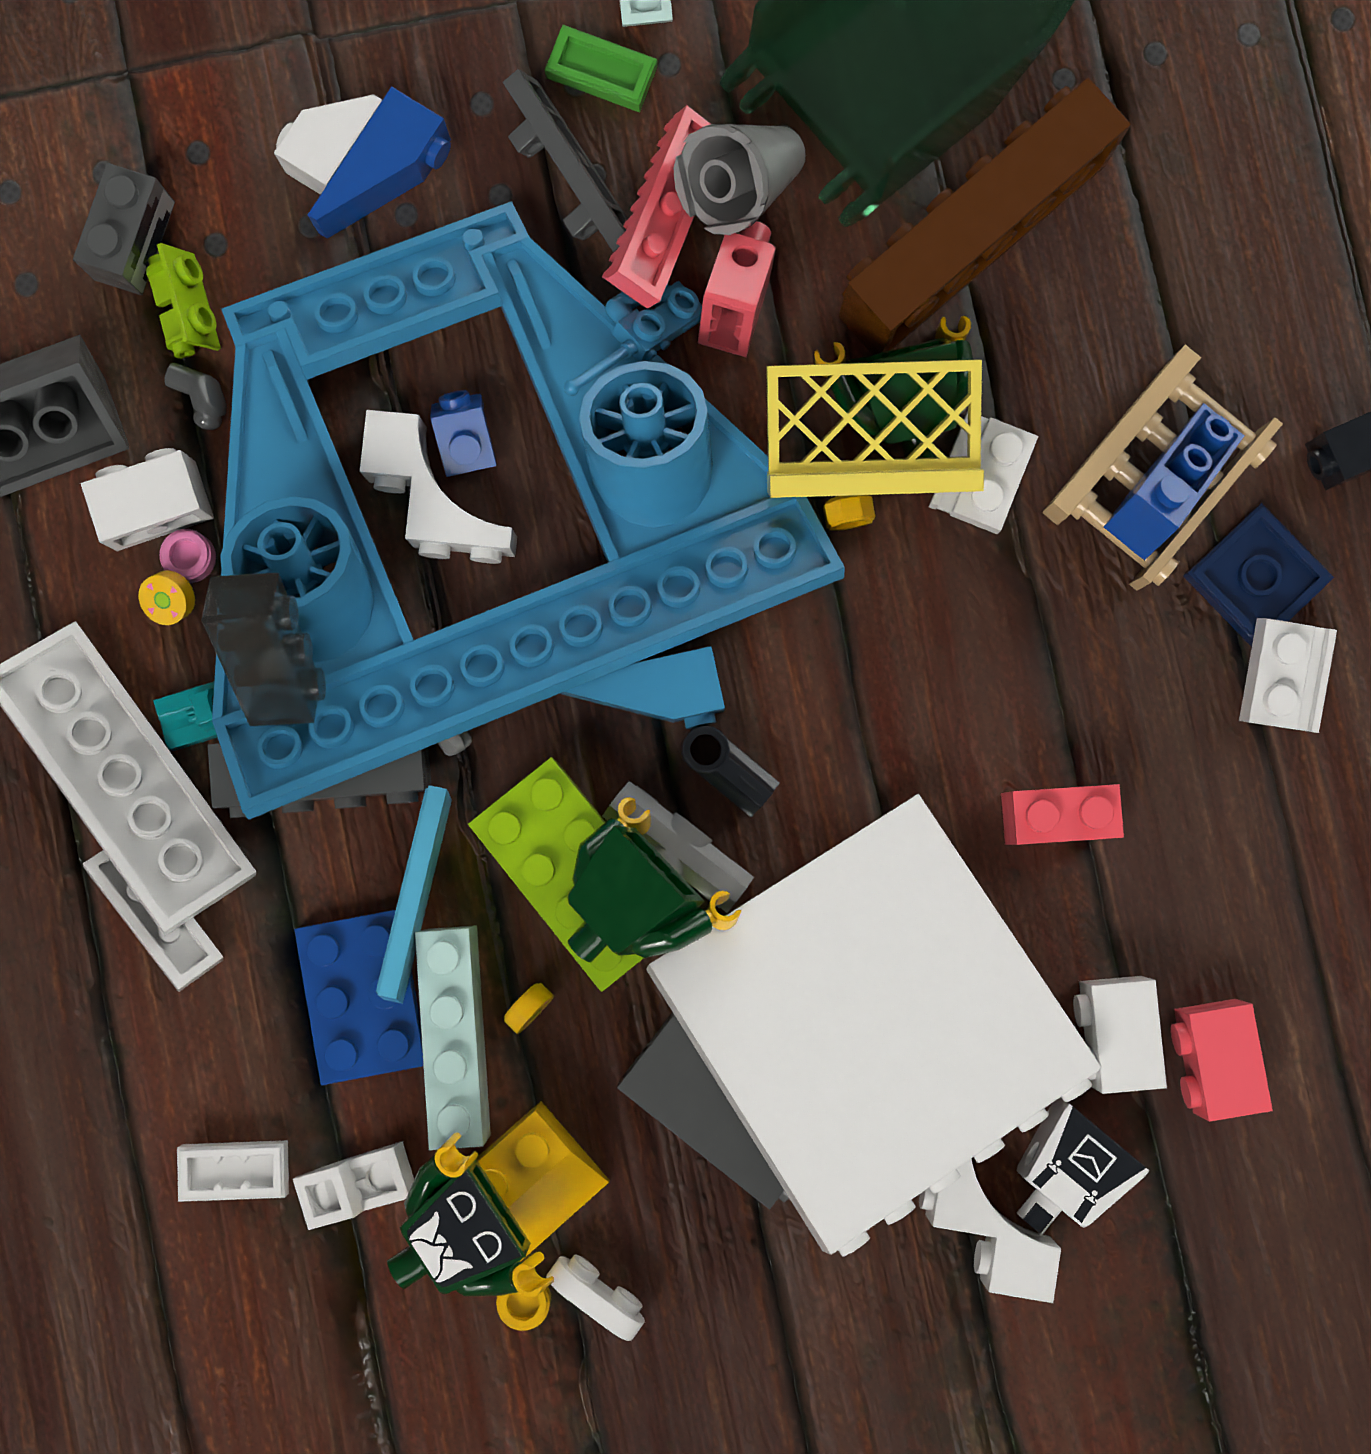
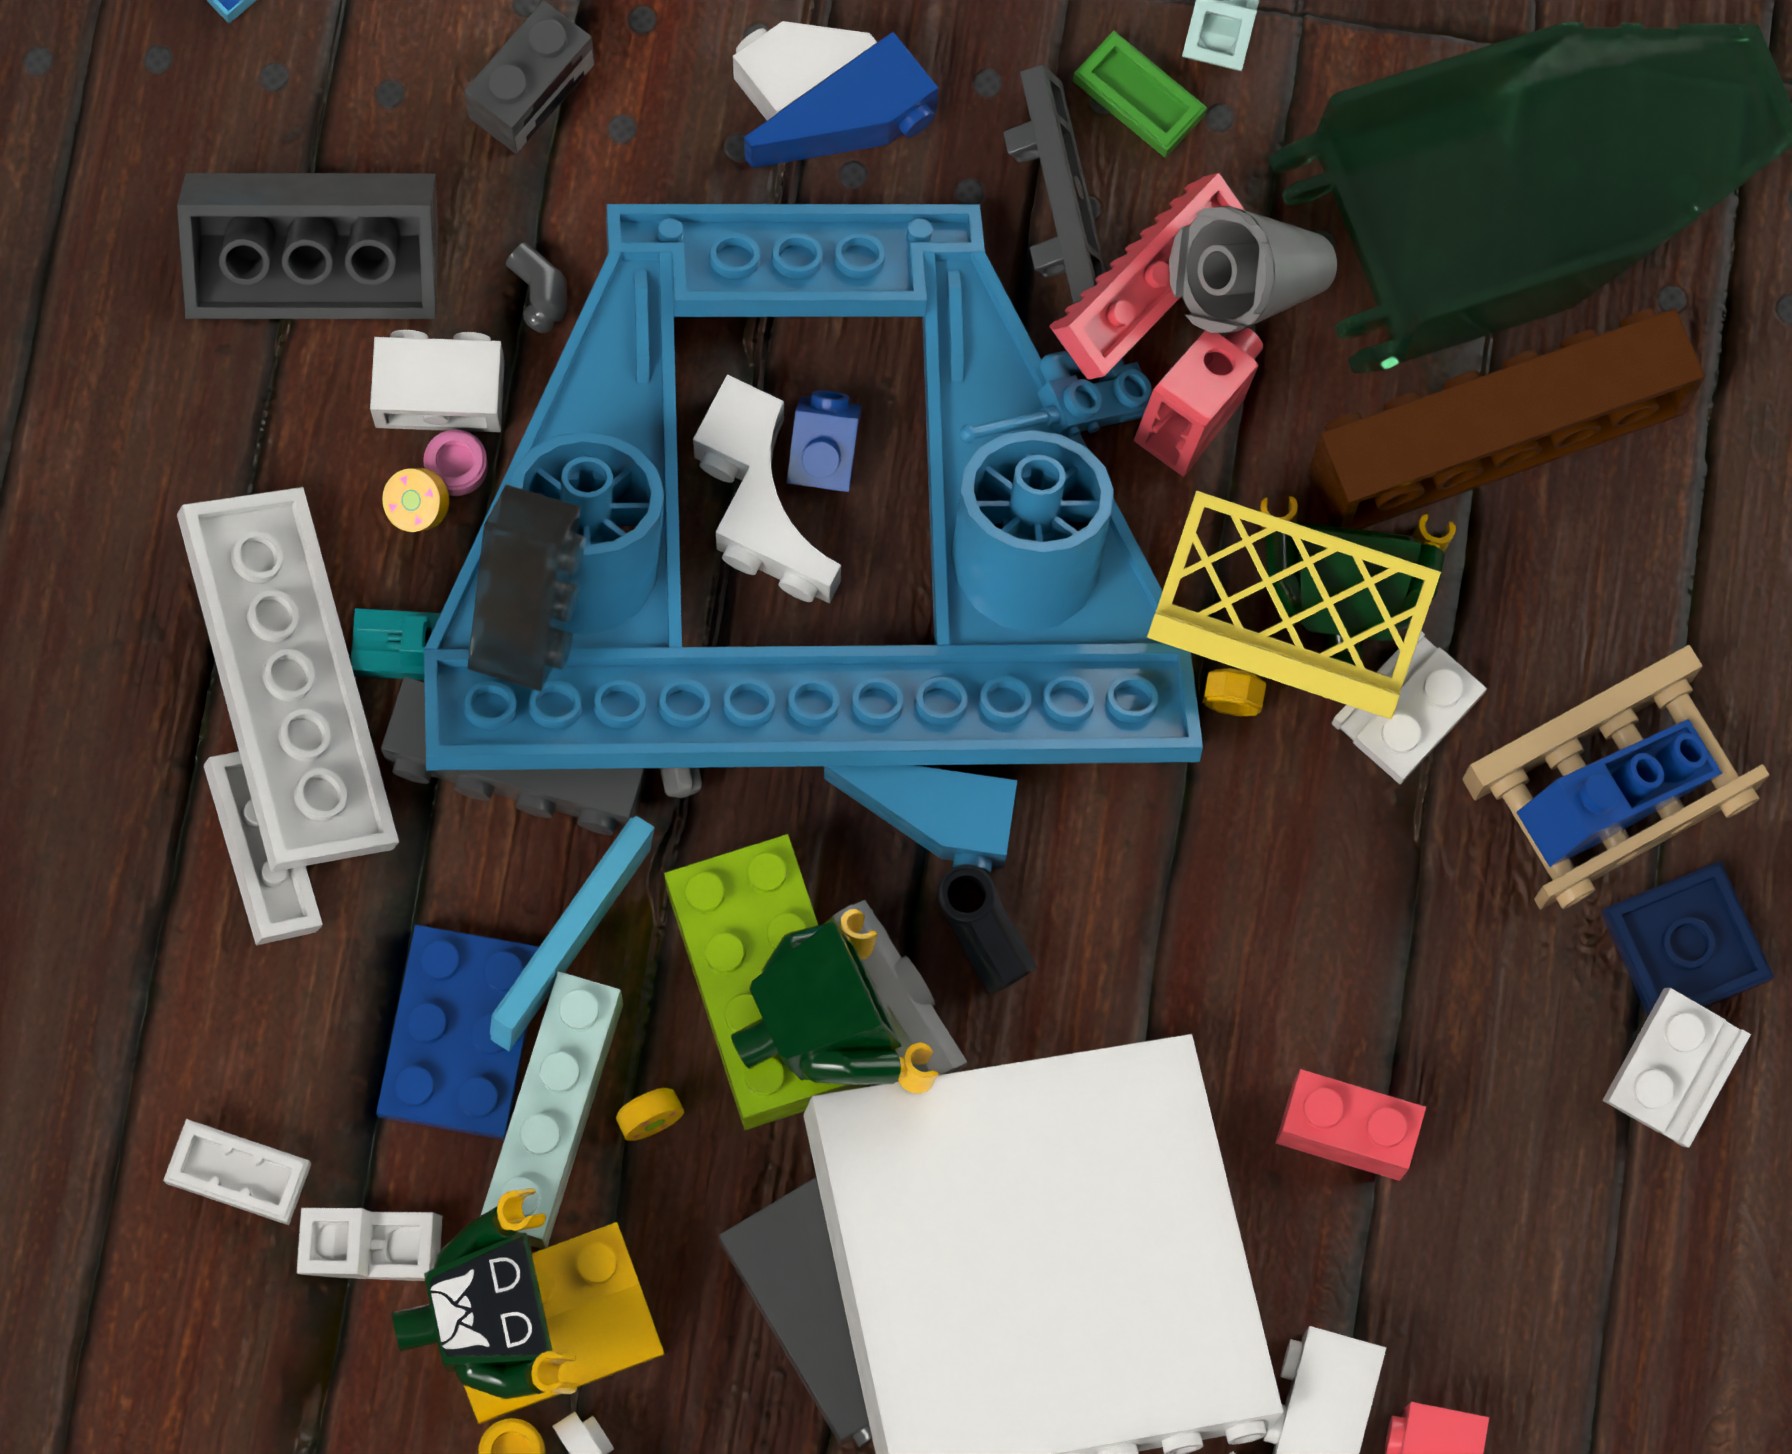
camera: 15 degrees right, 10 degrees down
(178, 280) = (565, 152): lime hinge -> none

